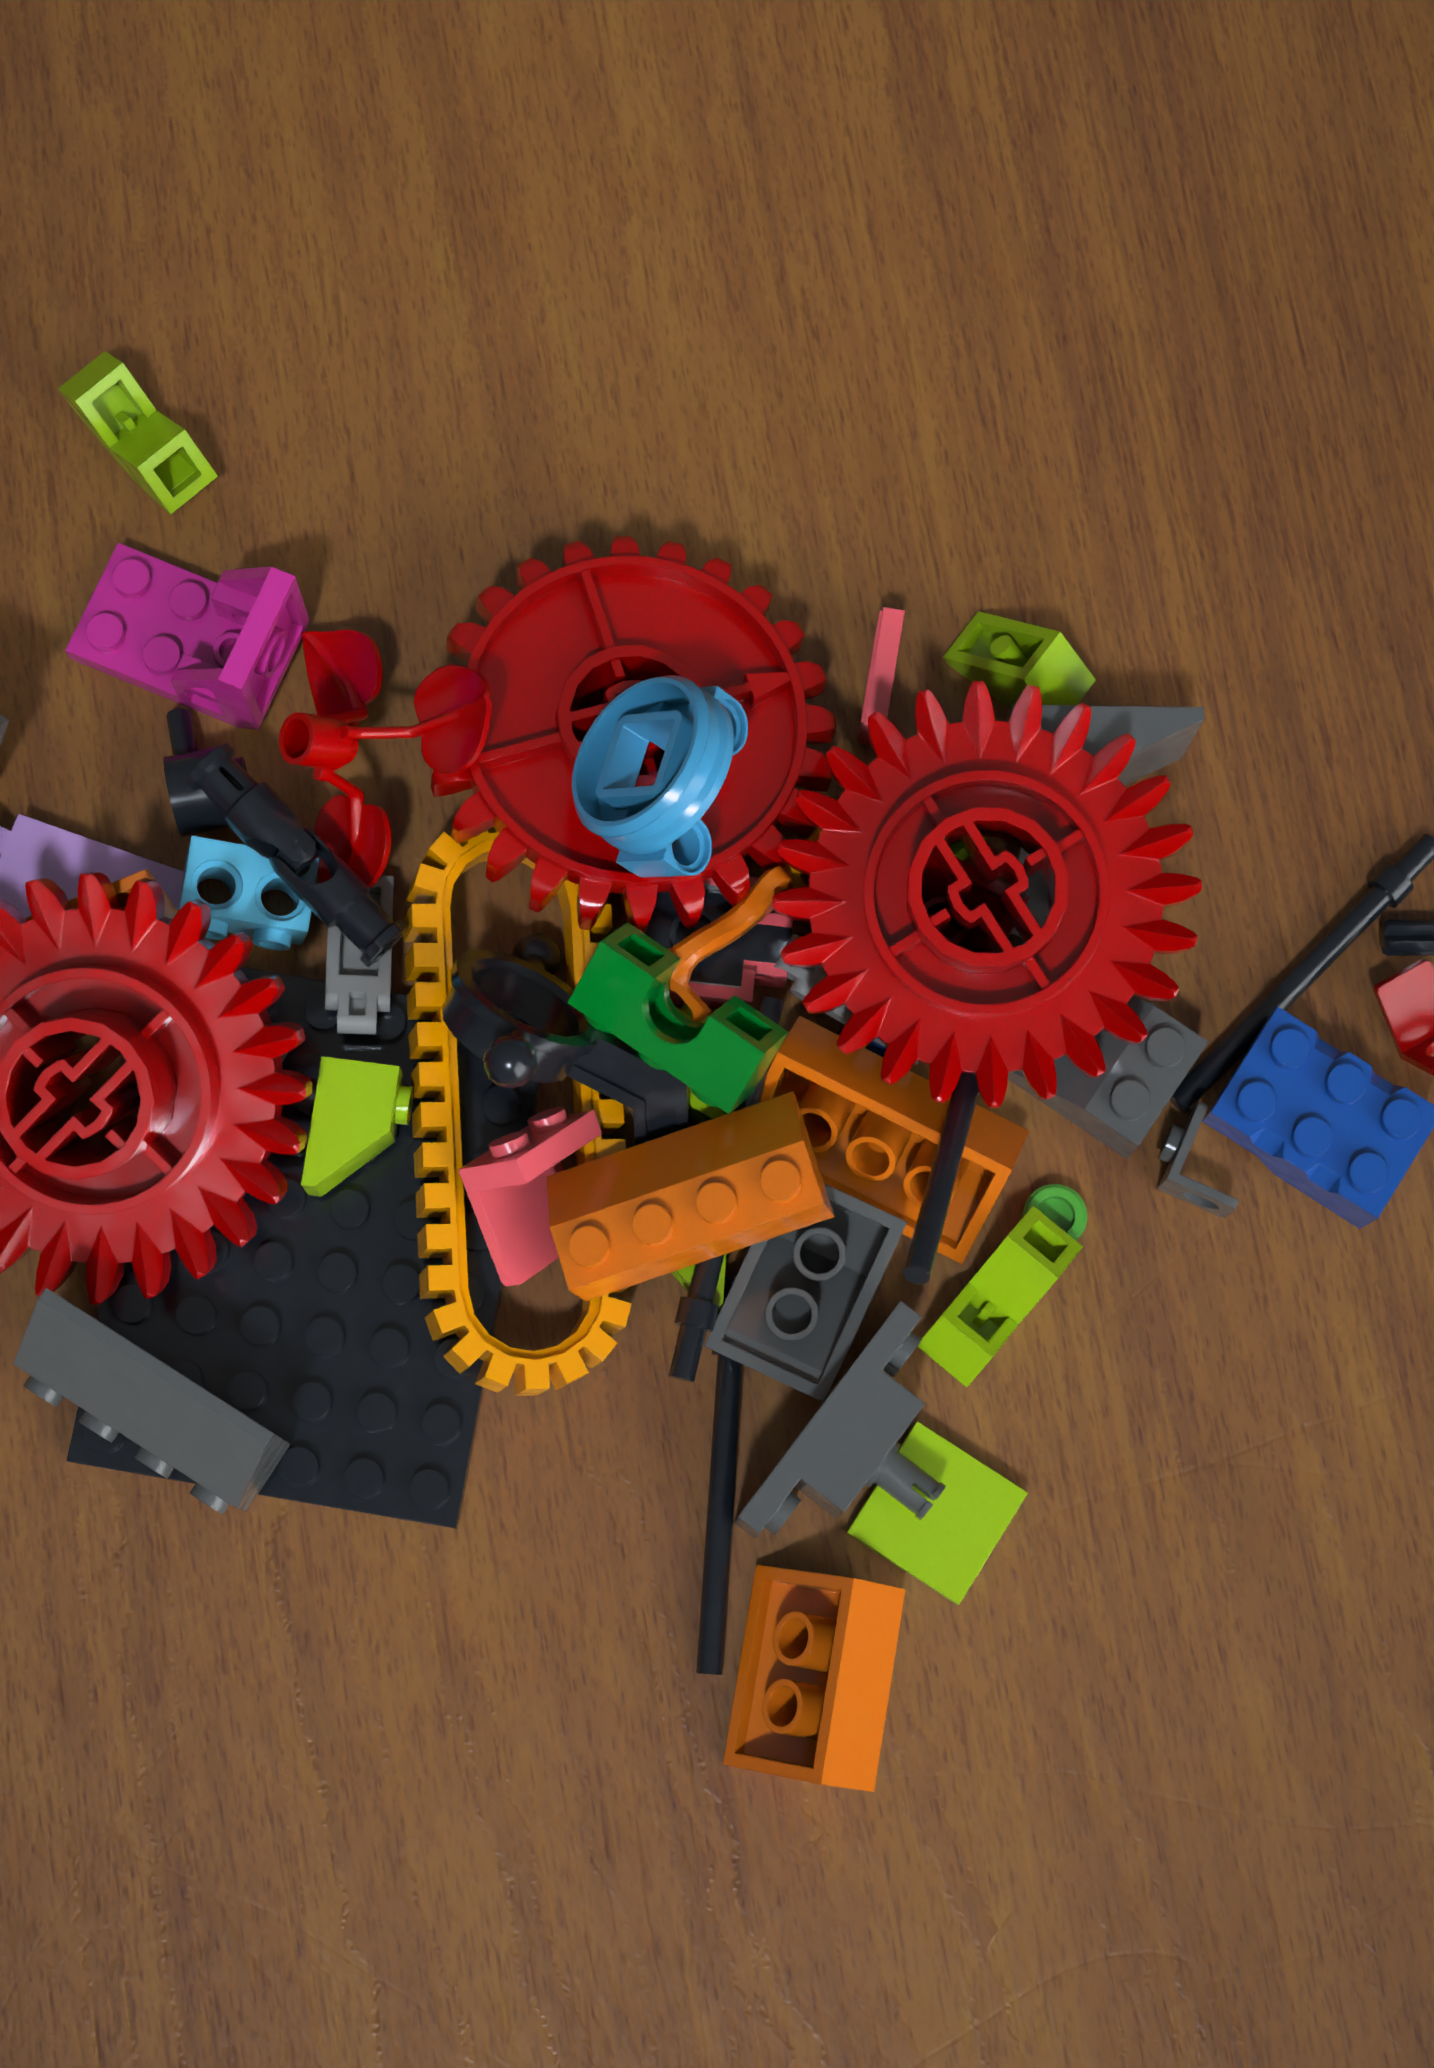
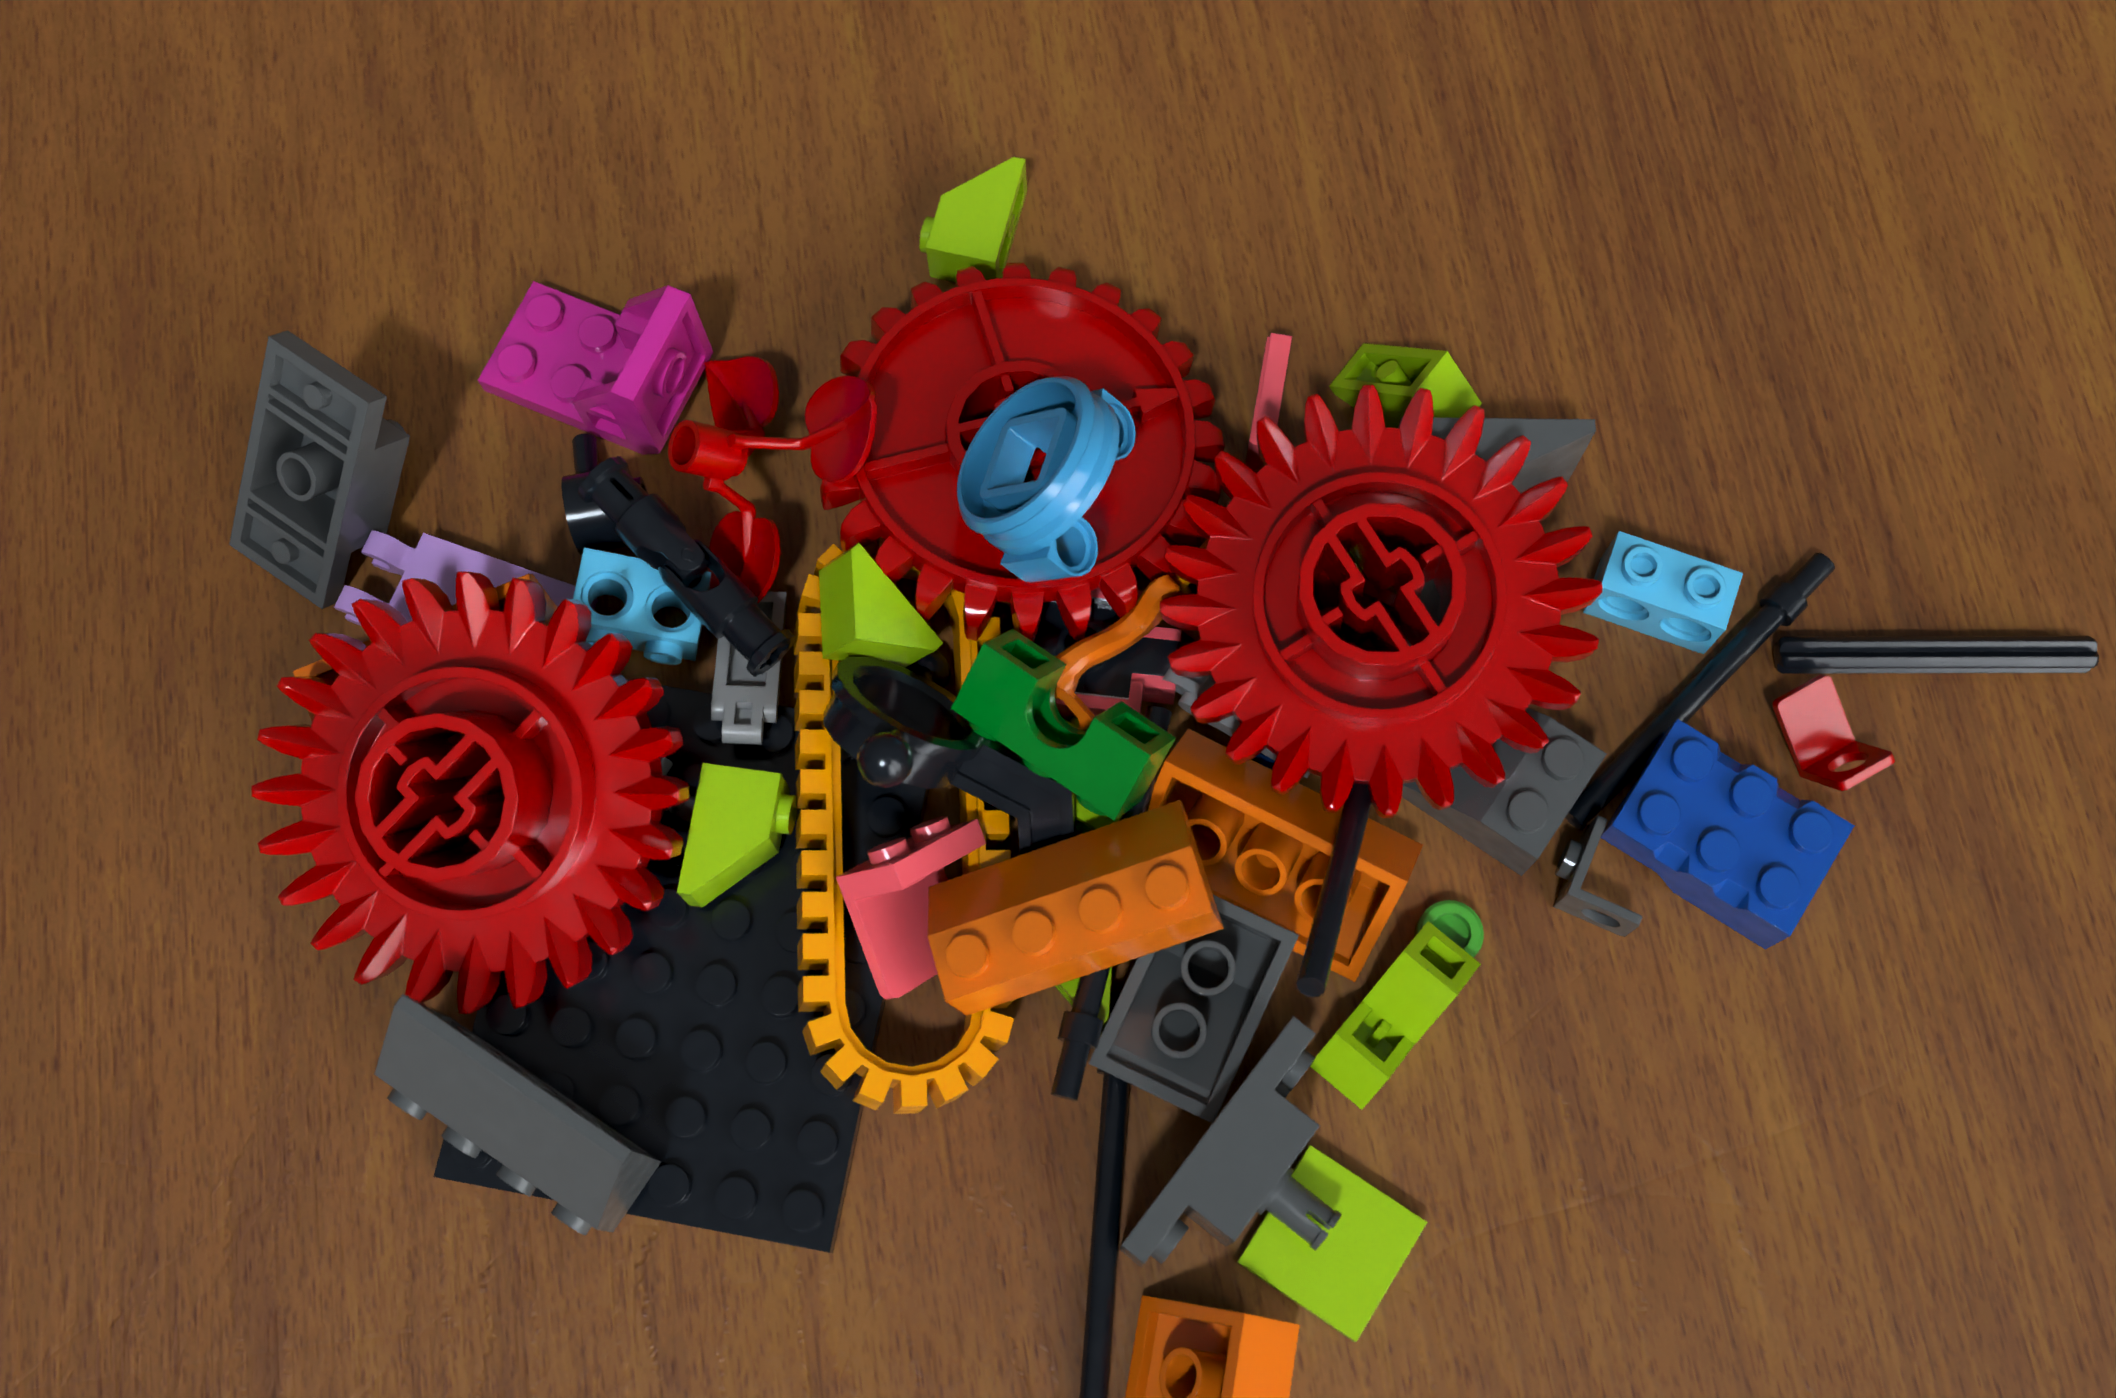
camera: 10 degrees right, 5 degrees down
(139, 437) = (556, 184): lime brick -> none
(481, 905) = (868, 614): none -> lime slope
(579, 486) = (976, 223): none -> lime slope
(1271, 876) = (1664, 592): none -> medium azure brick

